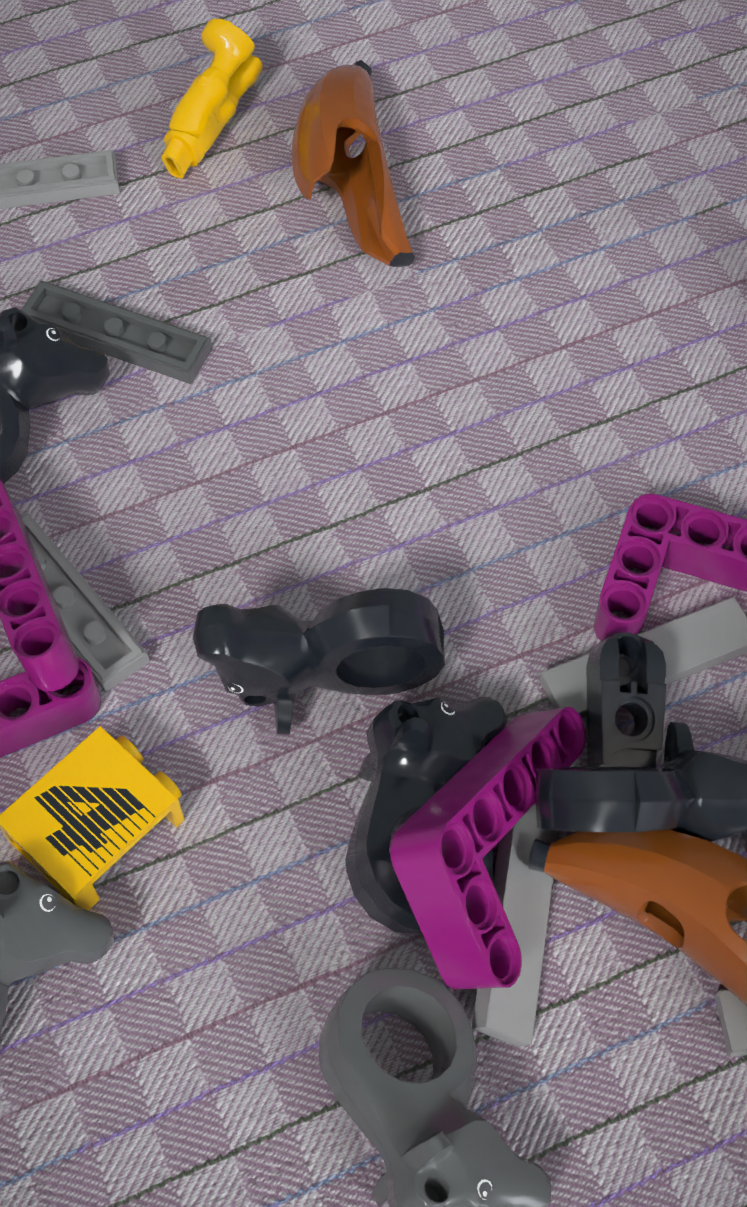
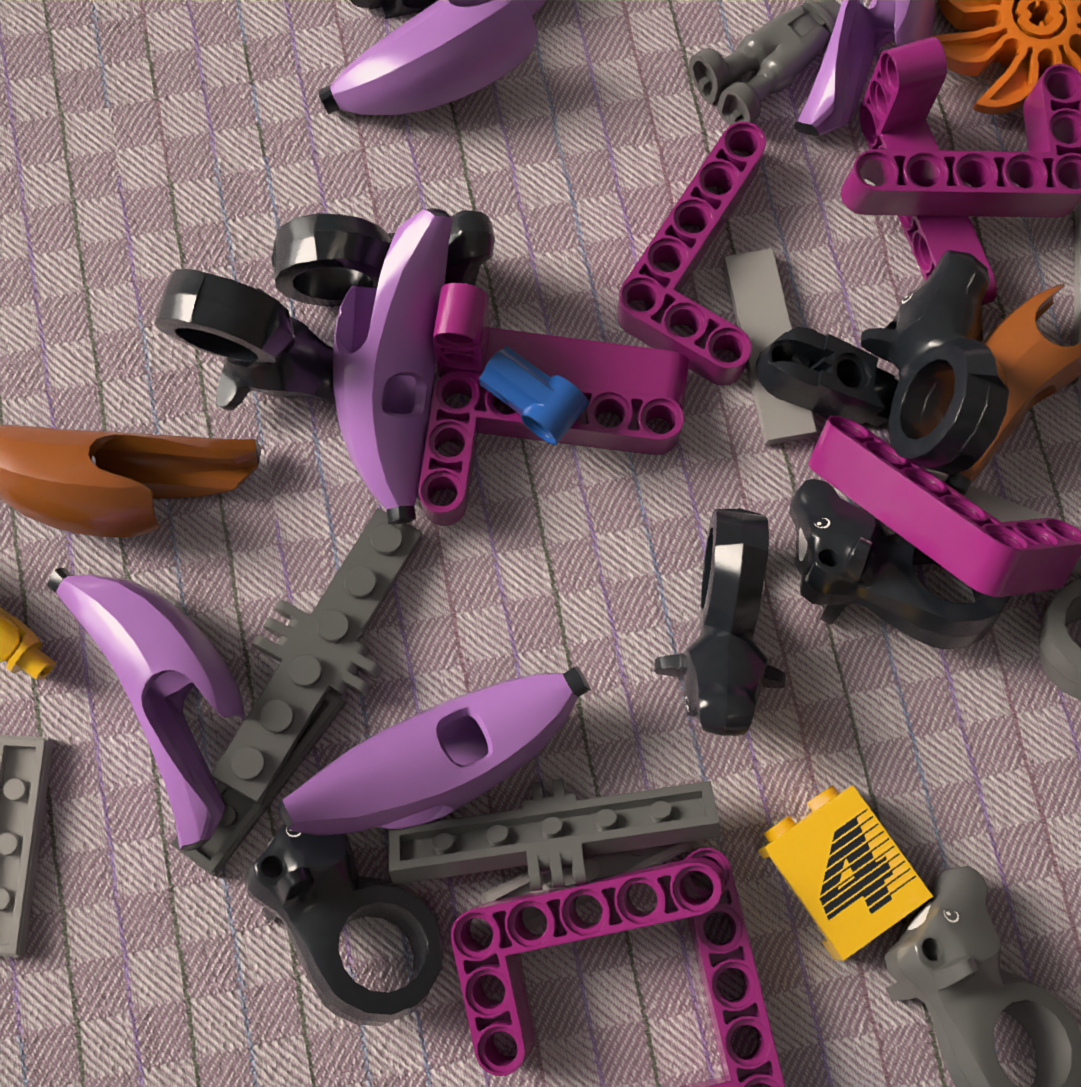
camera: 80 degrees left, 15 degrees up
(92, 550) = (553, 833): none -> dark grey hinge
(134, 427) = (435, 758): none -> medium lavender piece
(208, 224) = (158, 662): none -> medium lavender piece
(228, 342) = (316, 656): none -> dark grey hinge
(491, 231) = (251, 332): none -> black animal
(494, 405) = (482, 417): none -> magenta beam
(505, 318) = (389, 361): none -> medium lavender piece
(506, 439) = (544, 402): none -> blue piece
(556, 448) = (468, 342): none -> magenta beam
(623, 328) = (326, 254): none -> black animal

